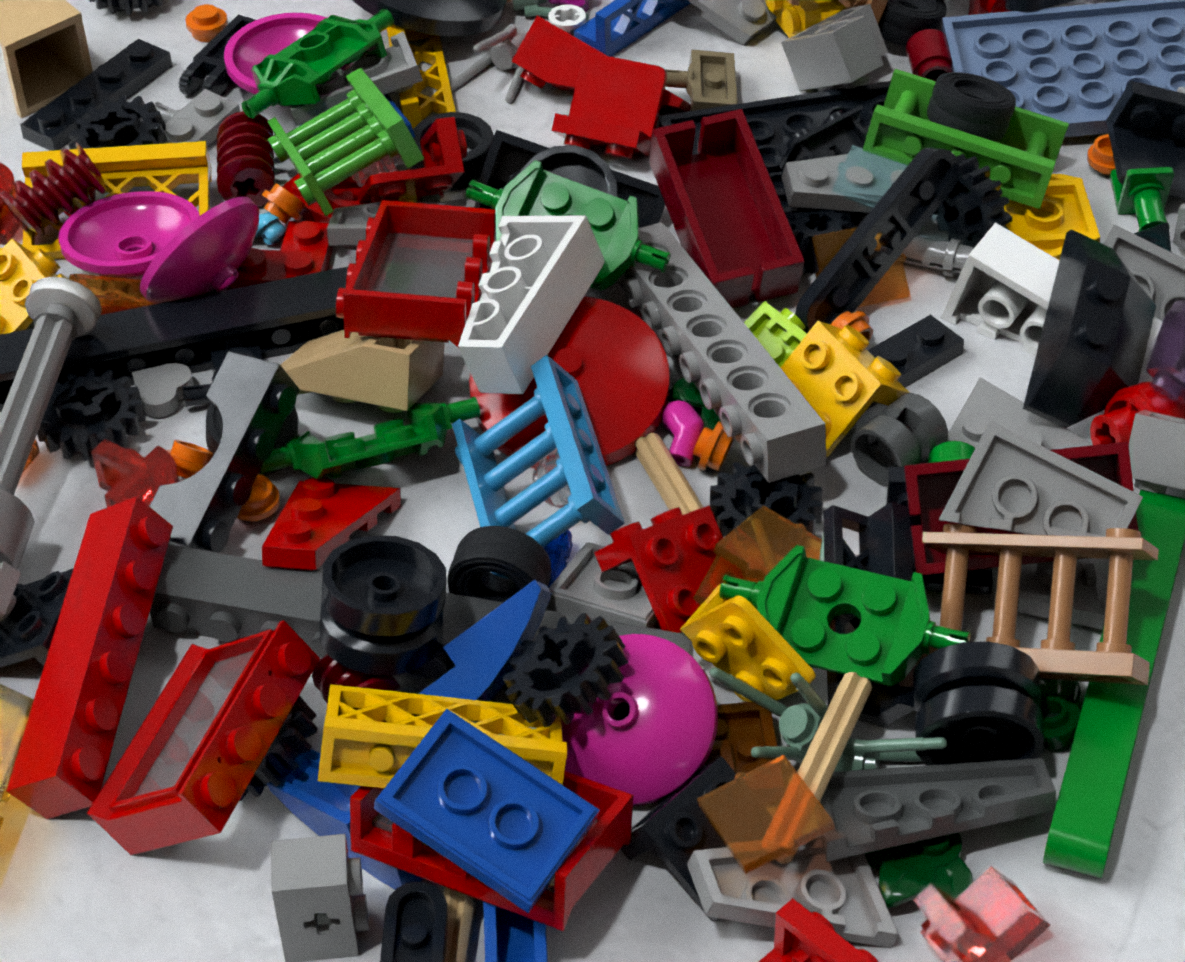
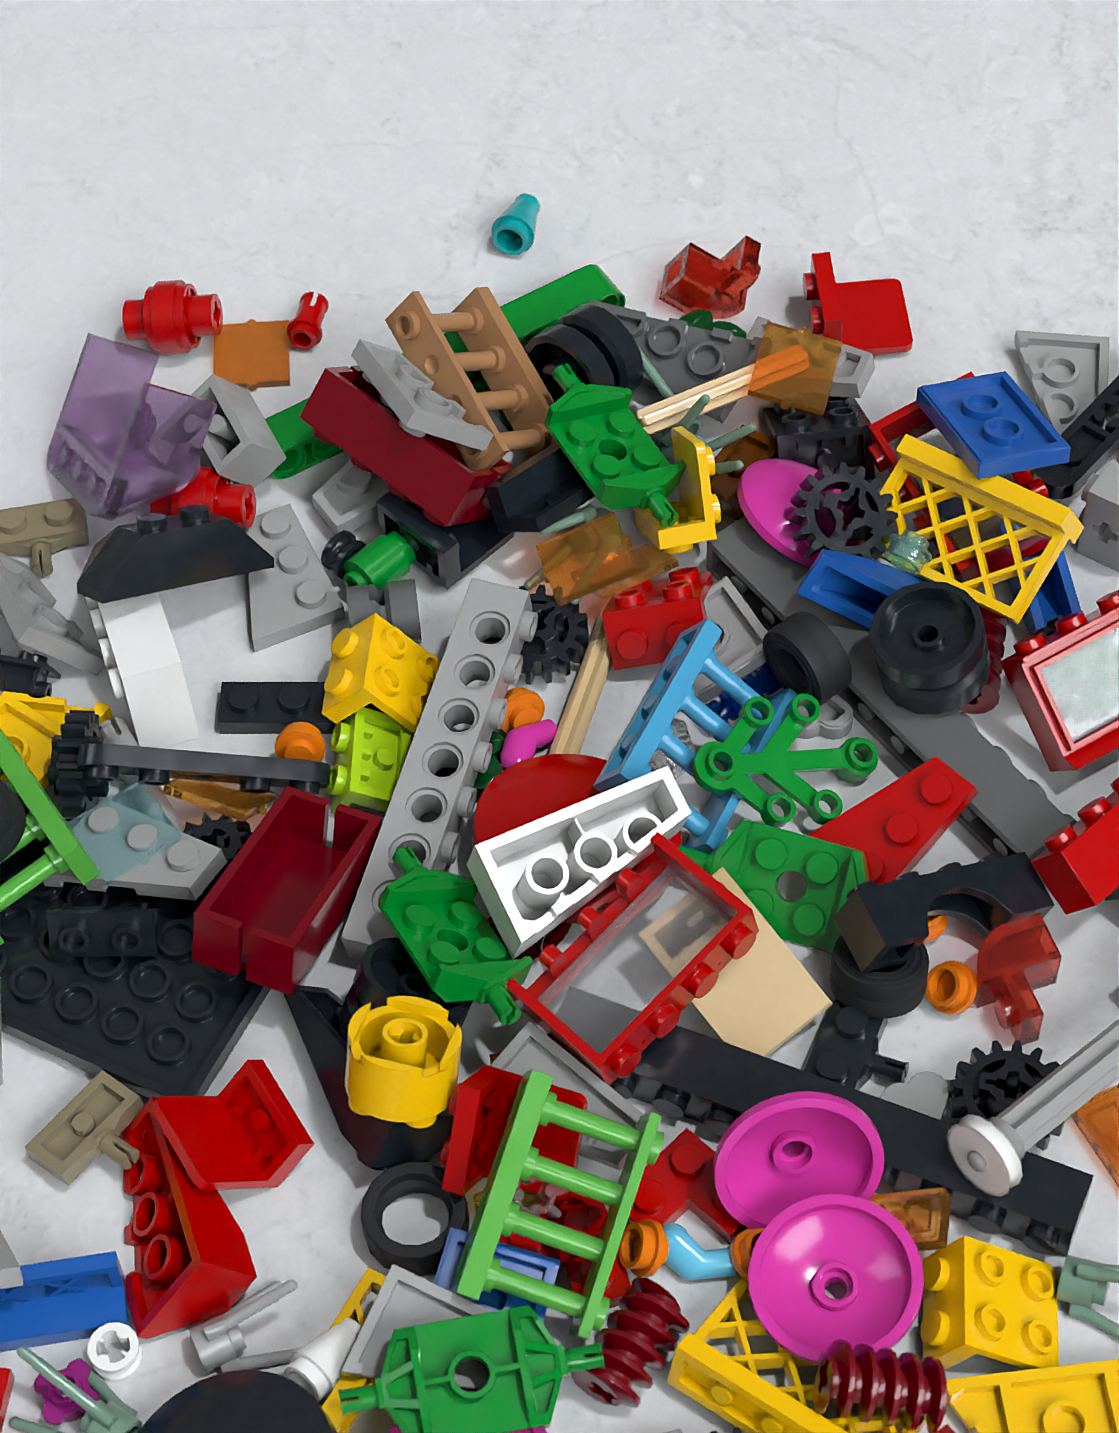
camera: 140 degrees left, 10 degrees up
(431, 53) = (320, 1362): none -> white cone
(479, 674) = (908, 551): none -> clear light blue plate
(489, 456) = (779, 764): none -> green plant
(512, 123) = (402, 1061): none -> yellow brick

